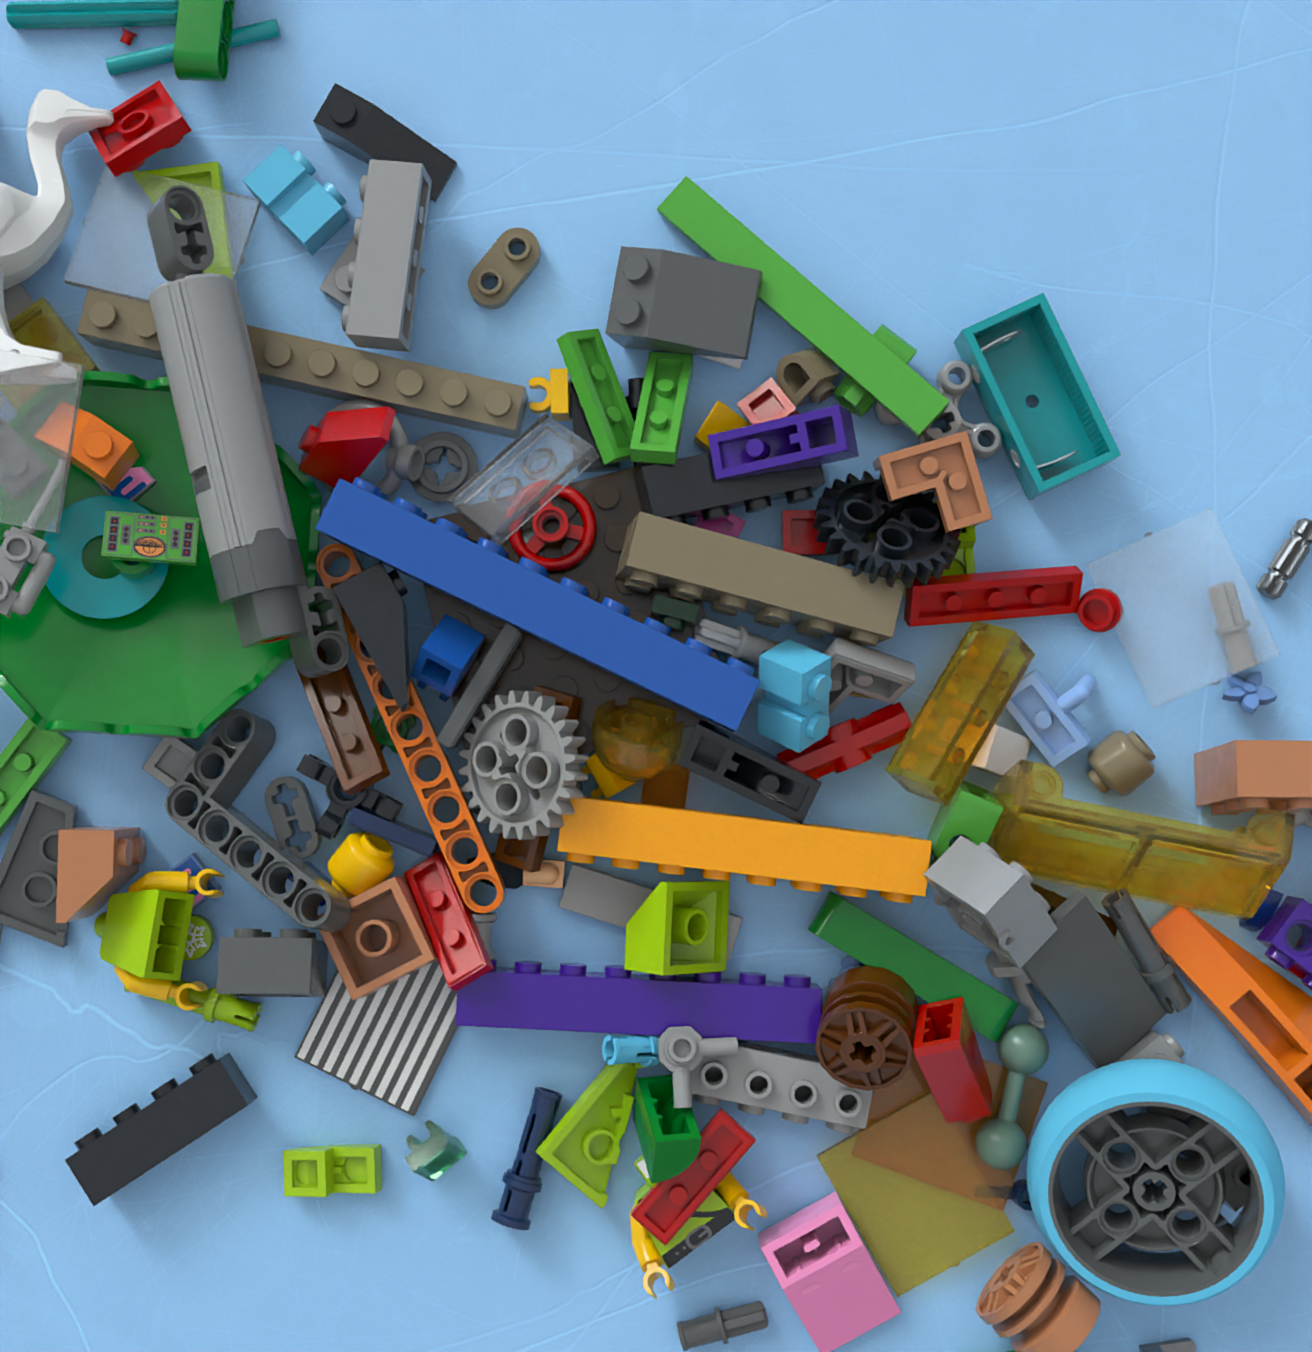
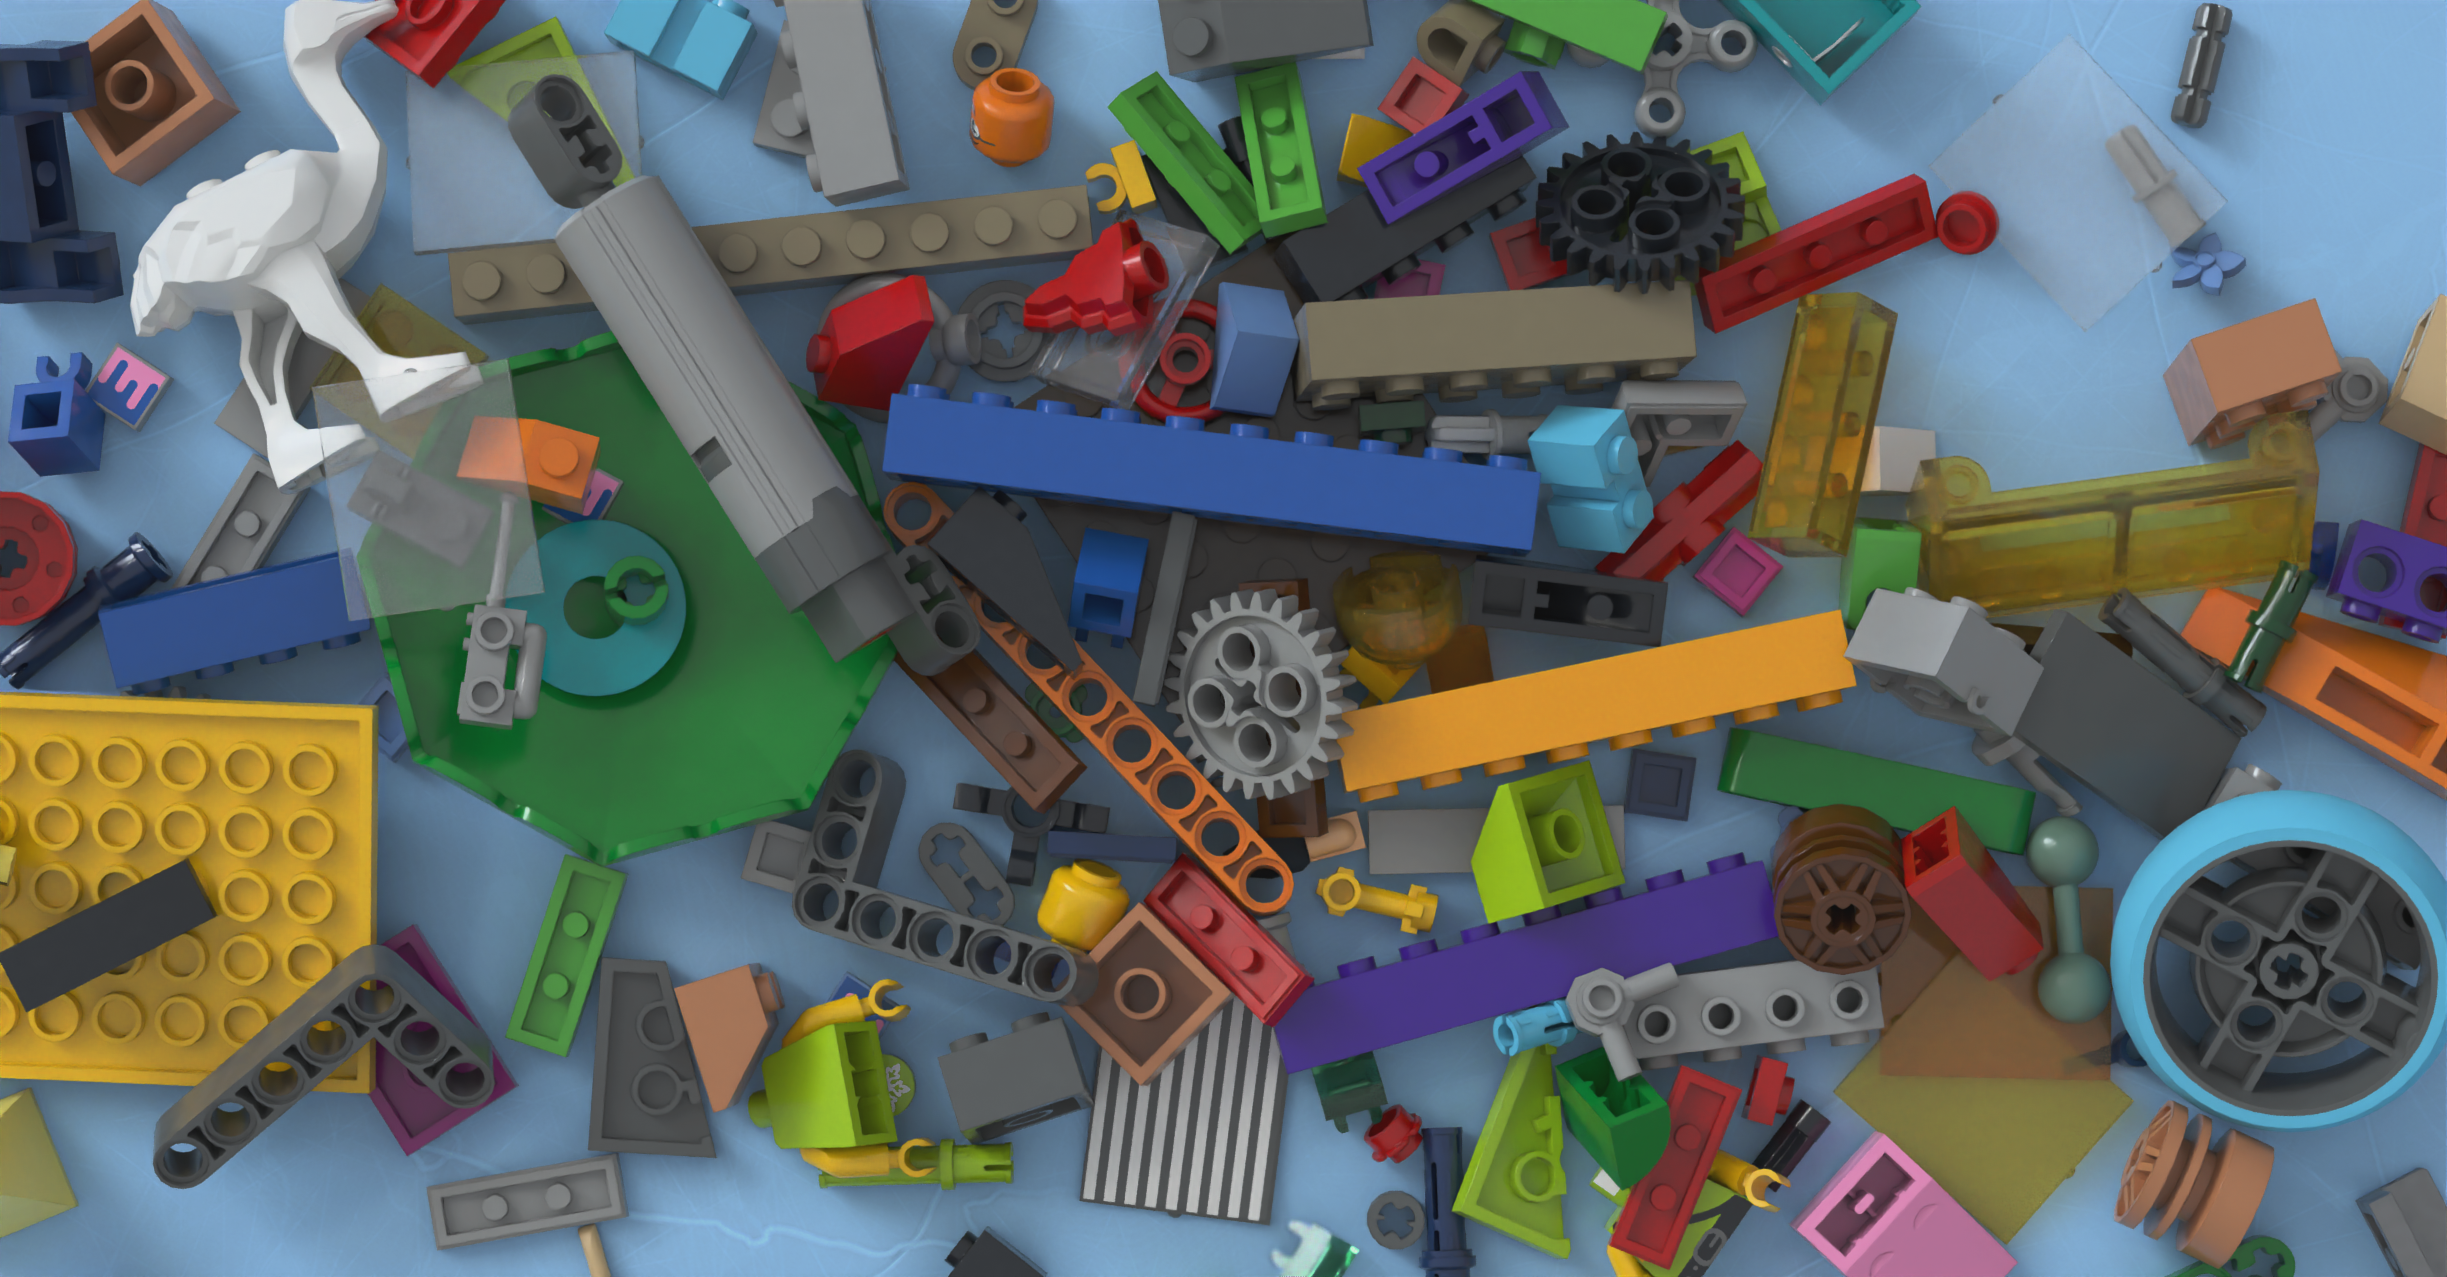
camera: 15 degrees left, 0 degrees up
(151, 538) = (659, 559): tile -> none
(490, 1153) = (1391, 1239): none -> dark grey bush
(493, 327) = (1011, 117): none -> orange head
(496, 1047) = (1349, 1088): none -> clear green tile
(512, 457) = (1103, 287): none -> red rock
(515, 1085) = (1395, 1135): none -> red plate
(537, 913) = (1344, 892): none -> yellow bar
(597, 533) = (1251, 349): none -> medium blue slope
(771, 912) = (1659, 785): none -> dark blue tile
(773, 1142) = (1768, 1091): none -> red plate
(776, 1180) = (1792, 1141): none -> black piece
(870, 788) = (1737, 571): none -> dark pink tile
(948, 470) = (1692, 105): nougat panel -> none
(1048, 717) = (1944, 391): light blue plate -> none
(1121, 763) = (2064, 420): dark tan head -> none
(1215, 948) = (2271, 626): none -> dark green pin

